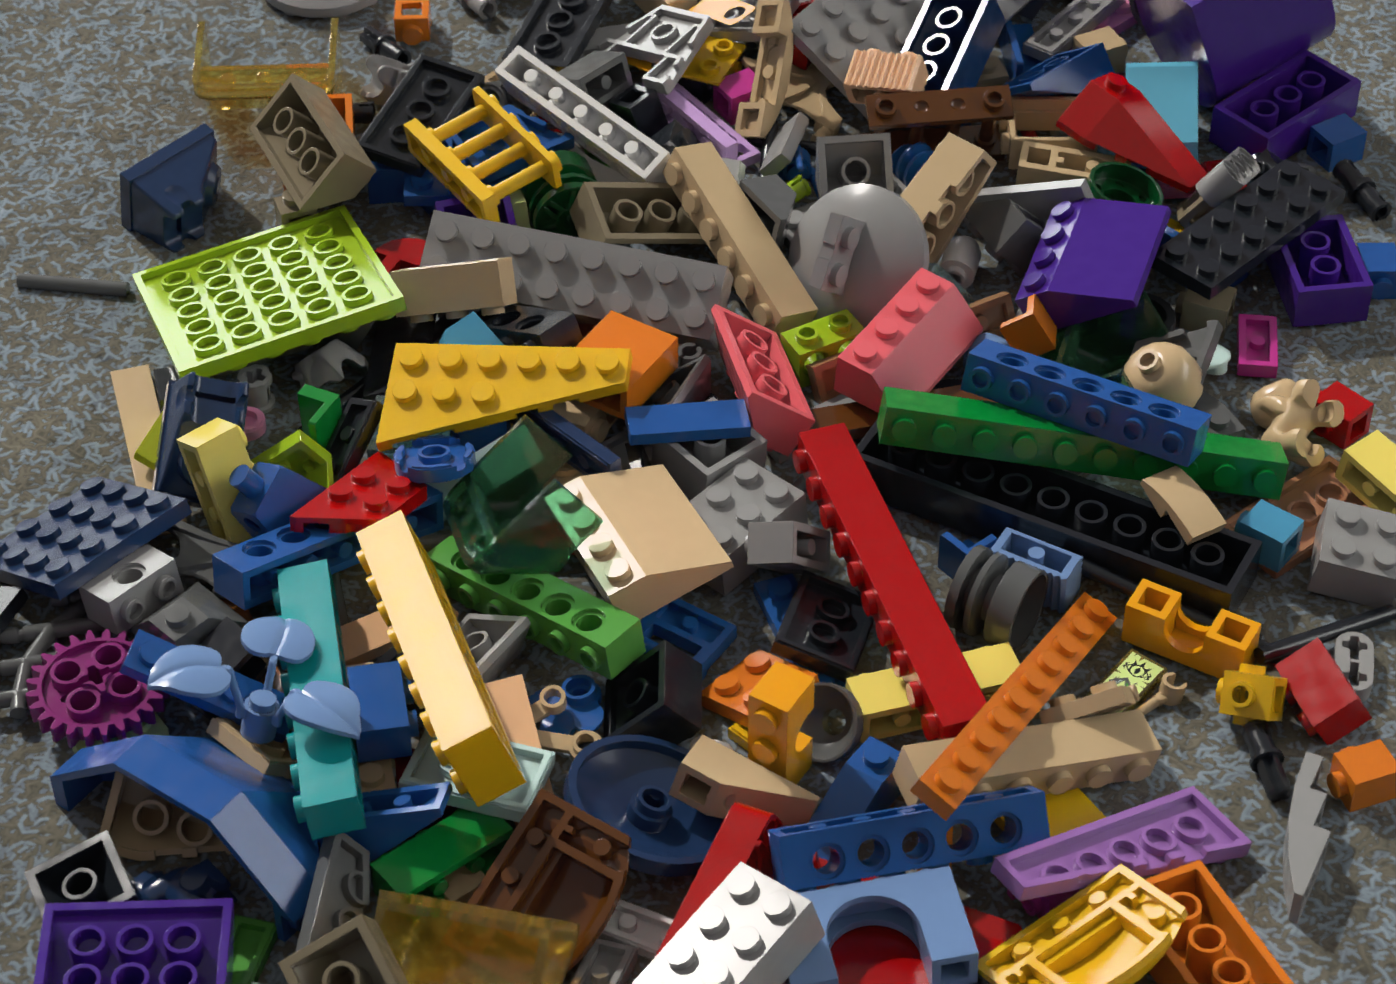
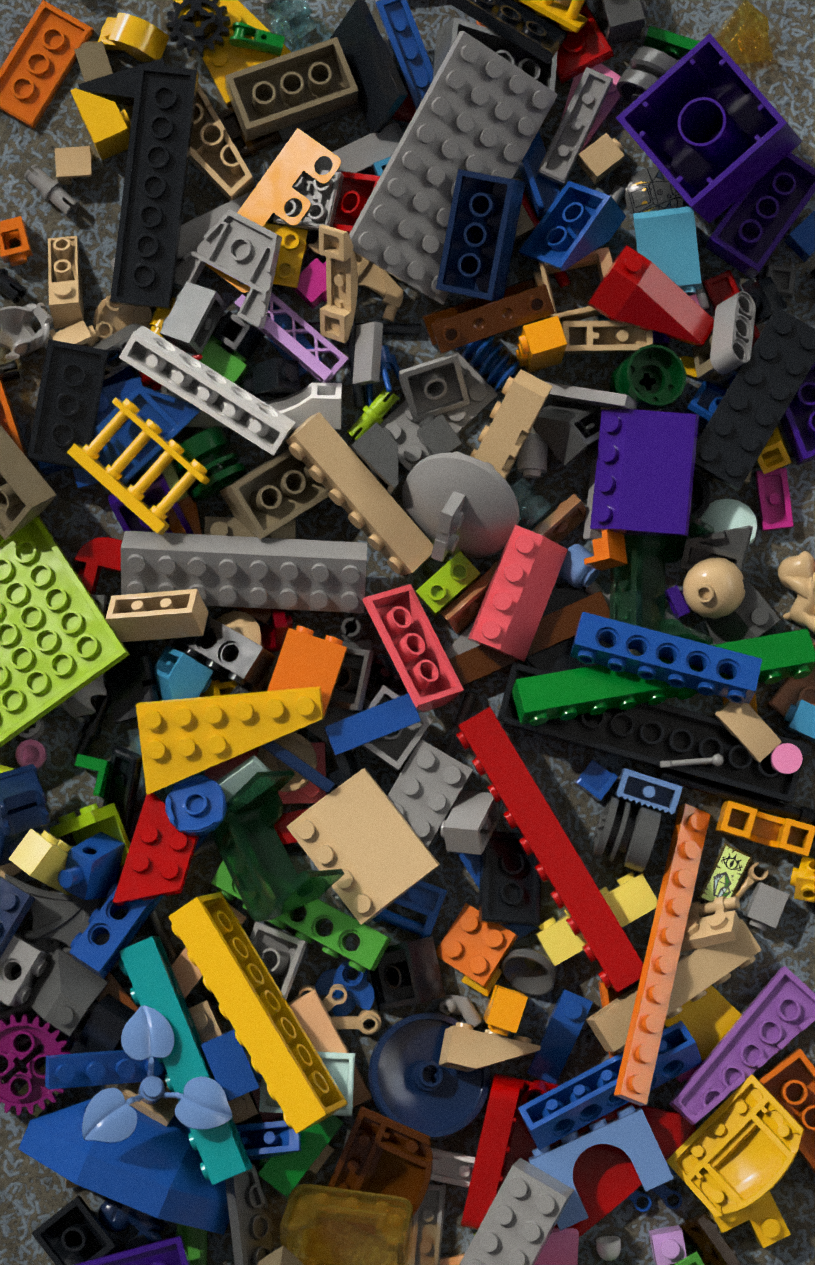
camera: 15 degrees left, 40 degrees up
(460, 48) = (65, 281): none -> tan slope
(884, 73) = (442, 288): light nougat brick -> none
(997, 130) = (541, 344): none -> light orange brick
(1066, 524) = (717, 760): none -> light grey hinge
(1179, 717) = (765, 906): none -> light grey brick
(1230, 544) = (786, 758): none -> bright pink tile
(1258, 291) = (774, 453): none -> yellow brick

